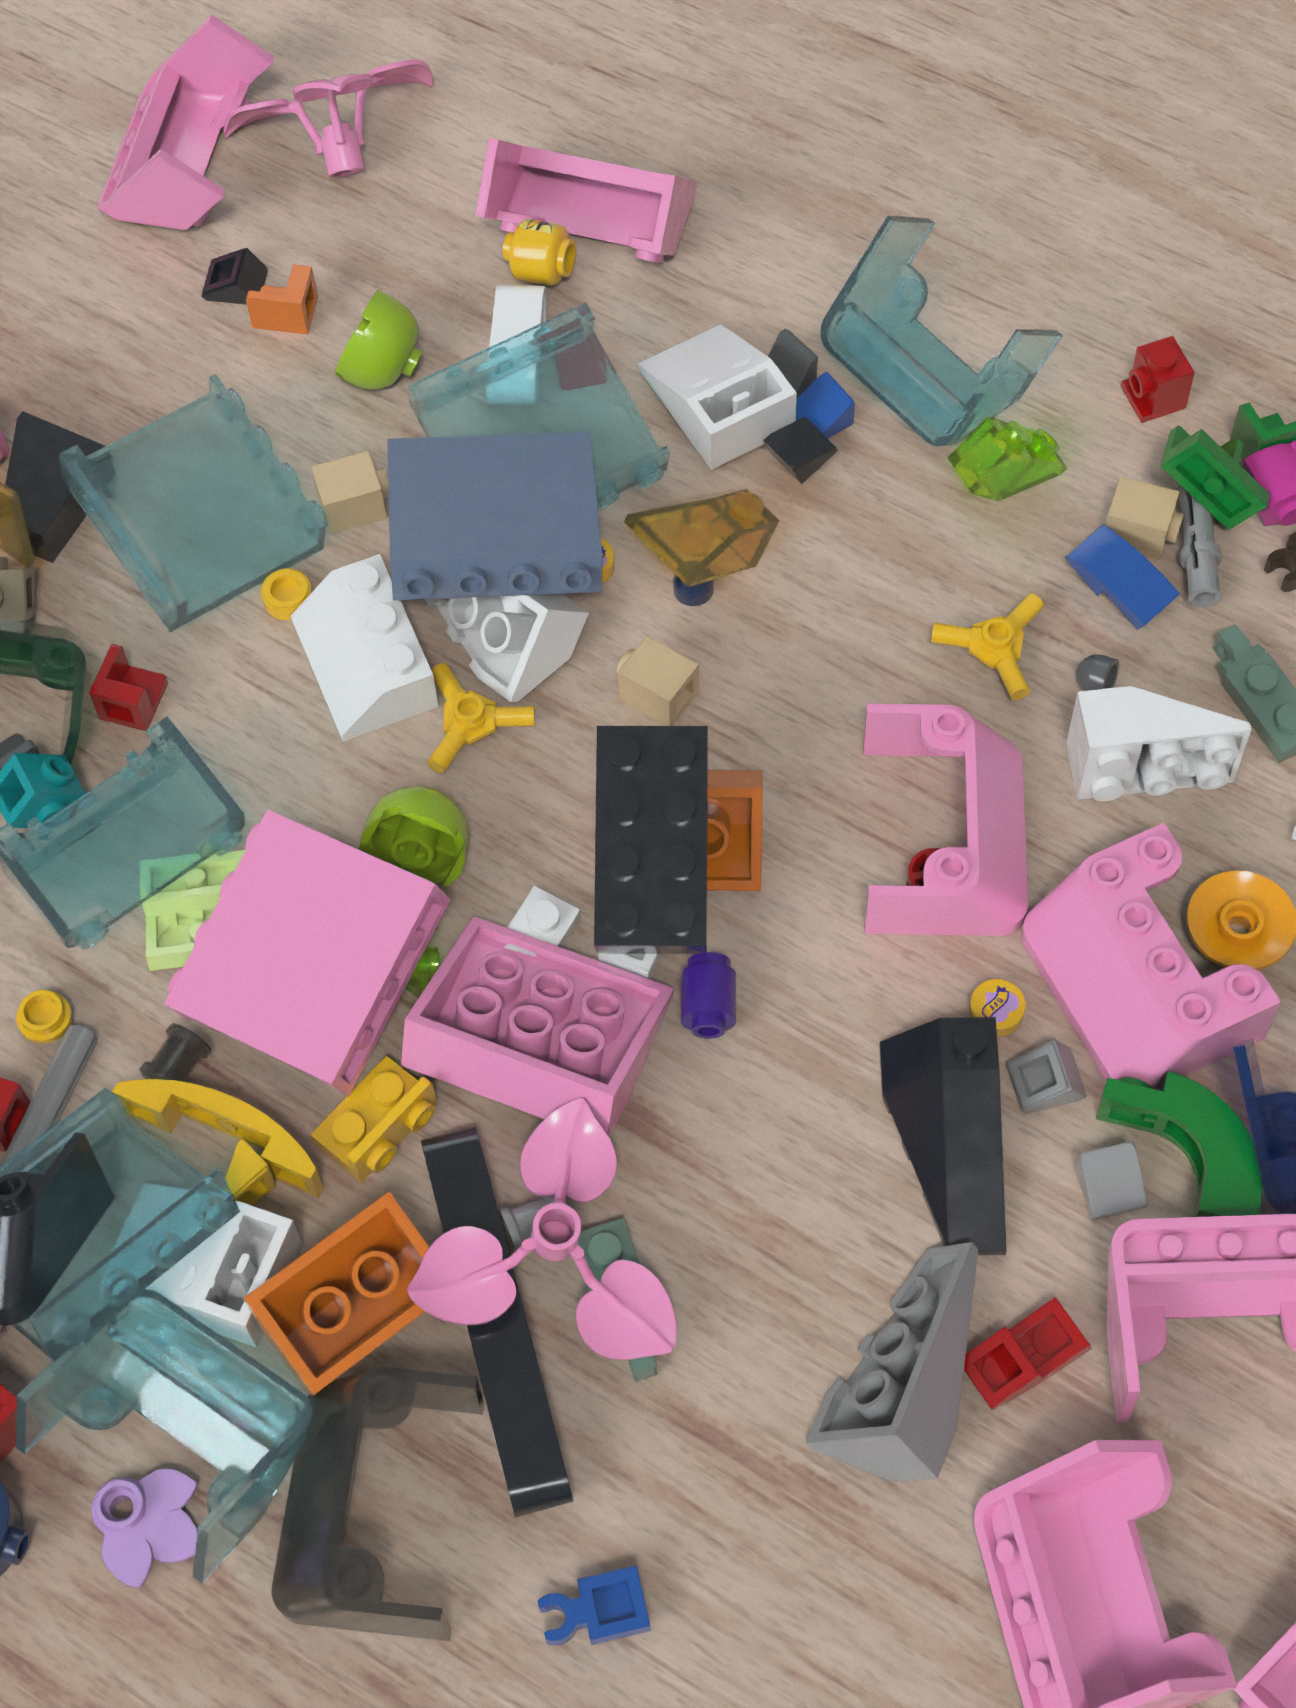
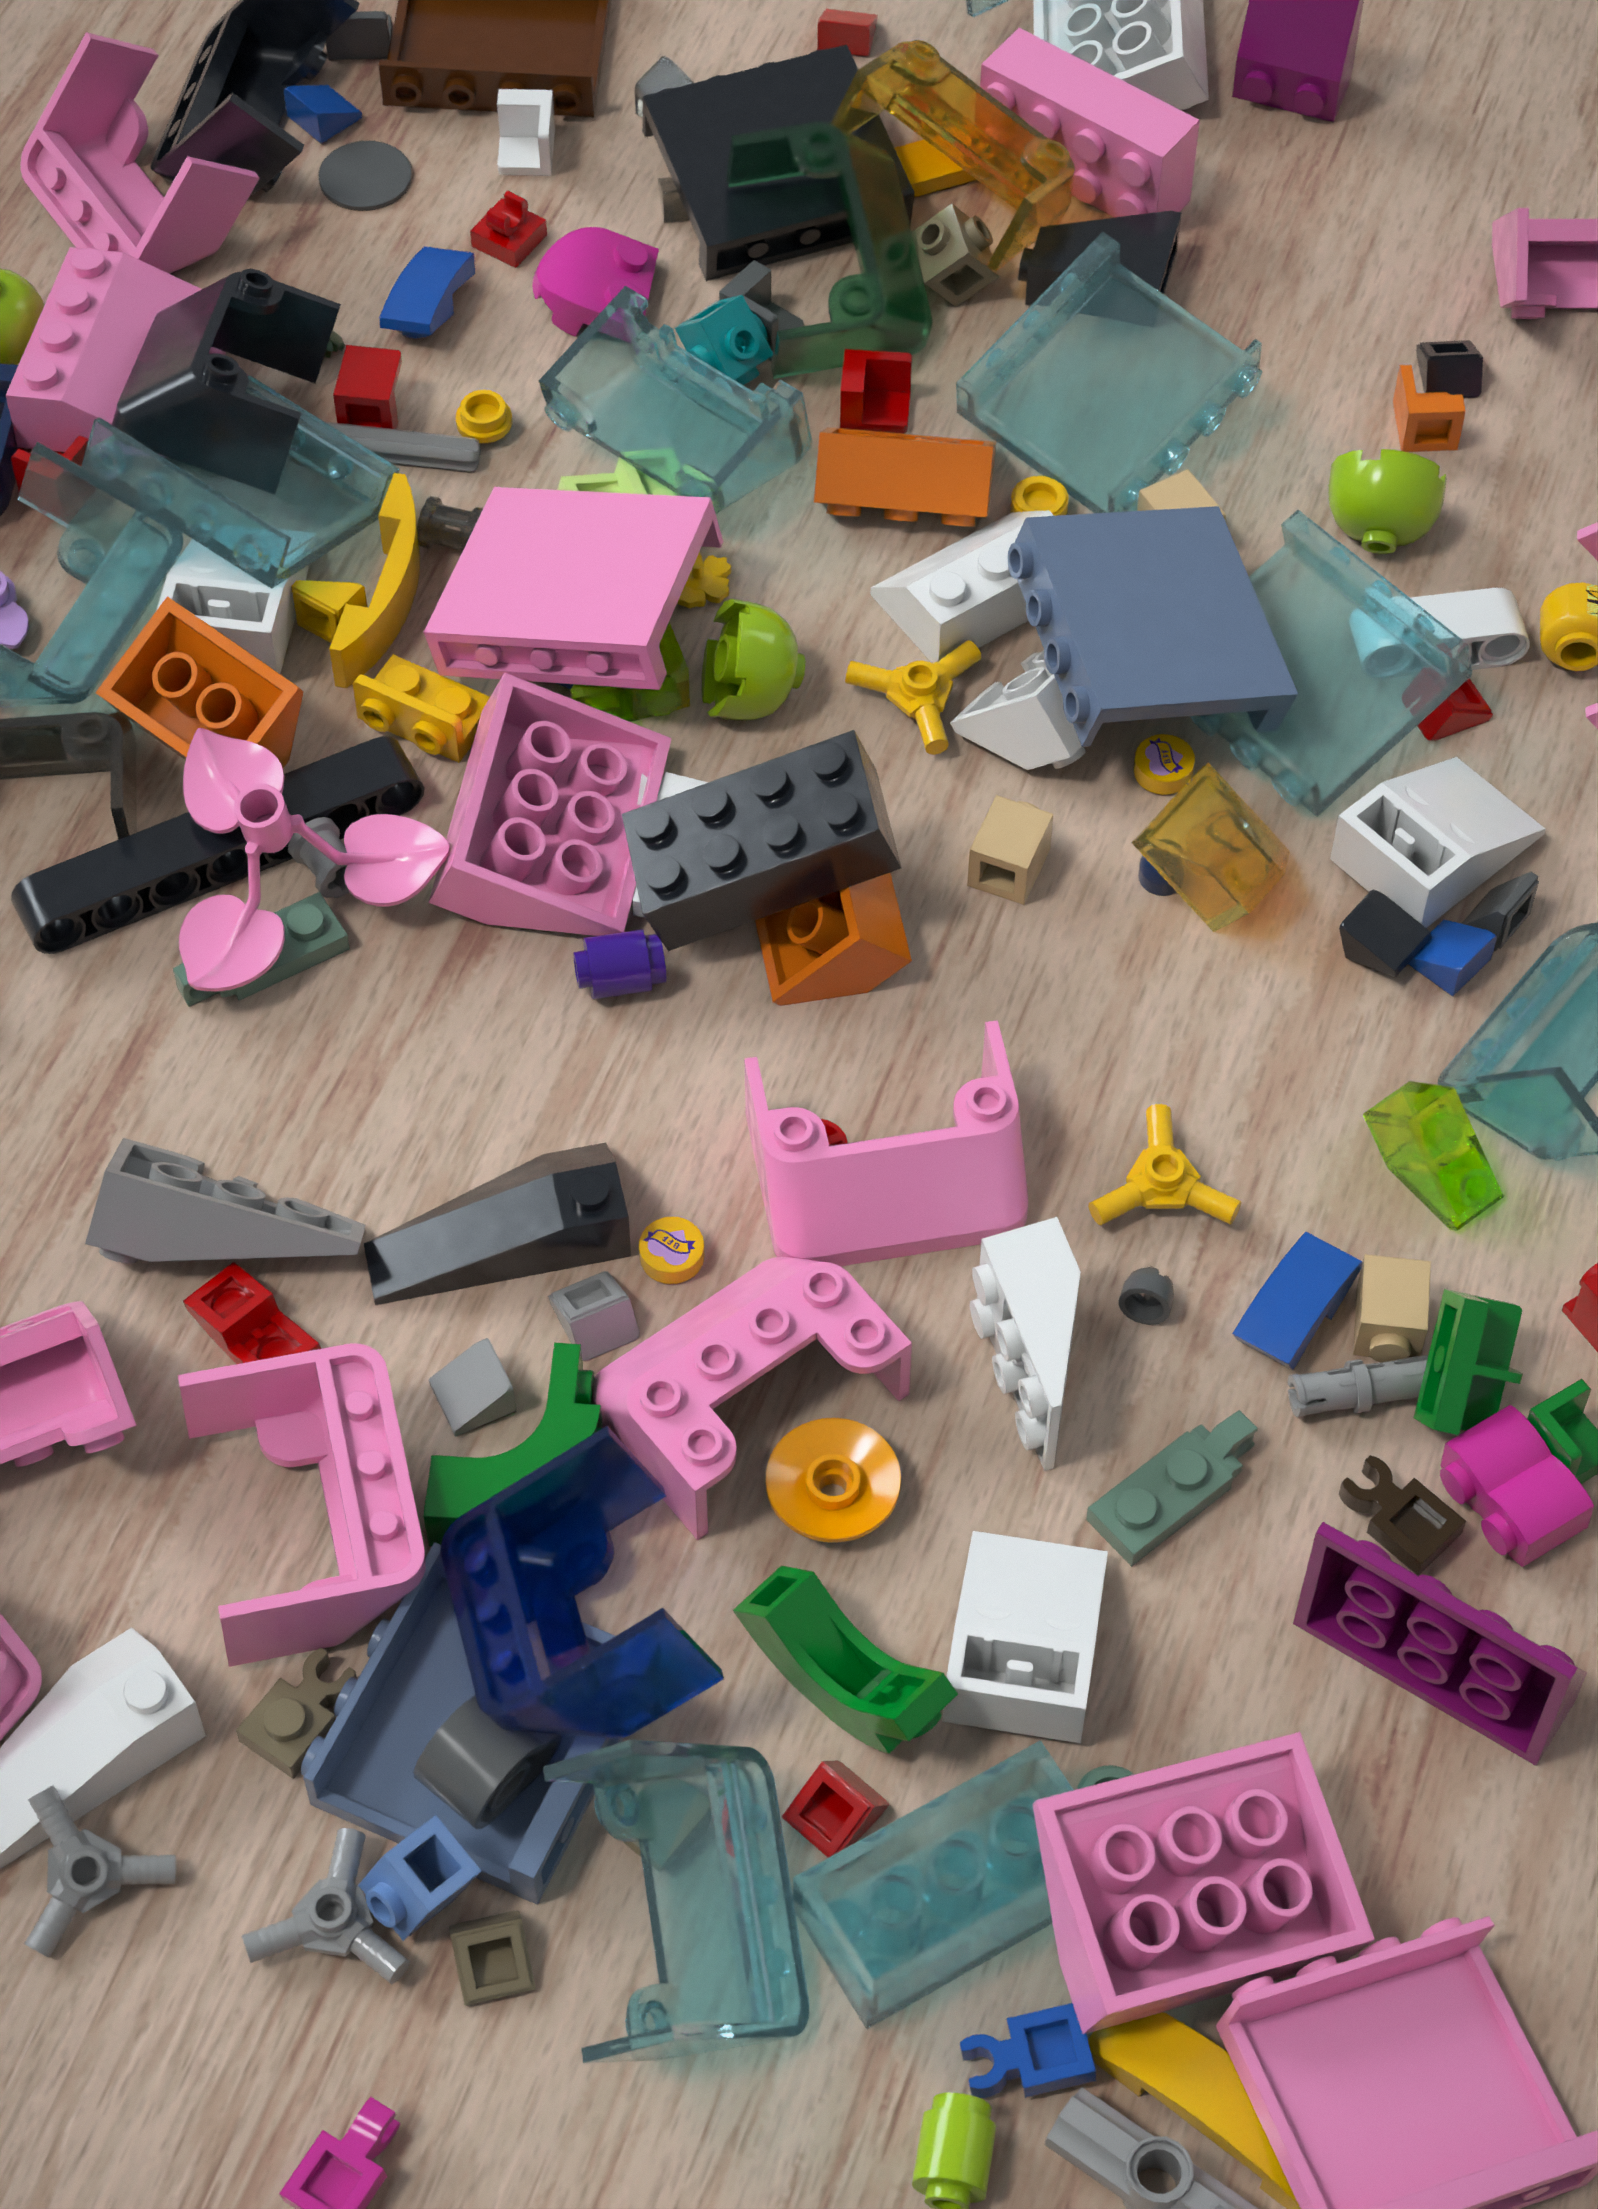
camera: 75 degrees right, 5 degrees down
(233, 676) = (904, 475): none -> orange slope

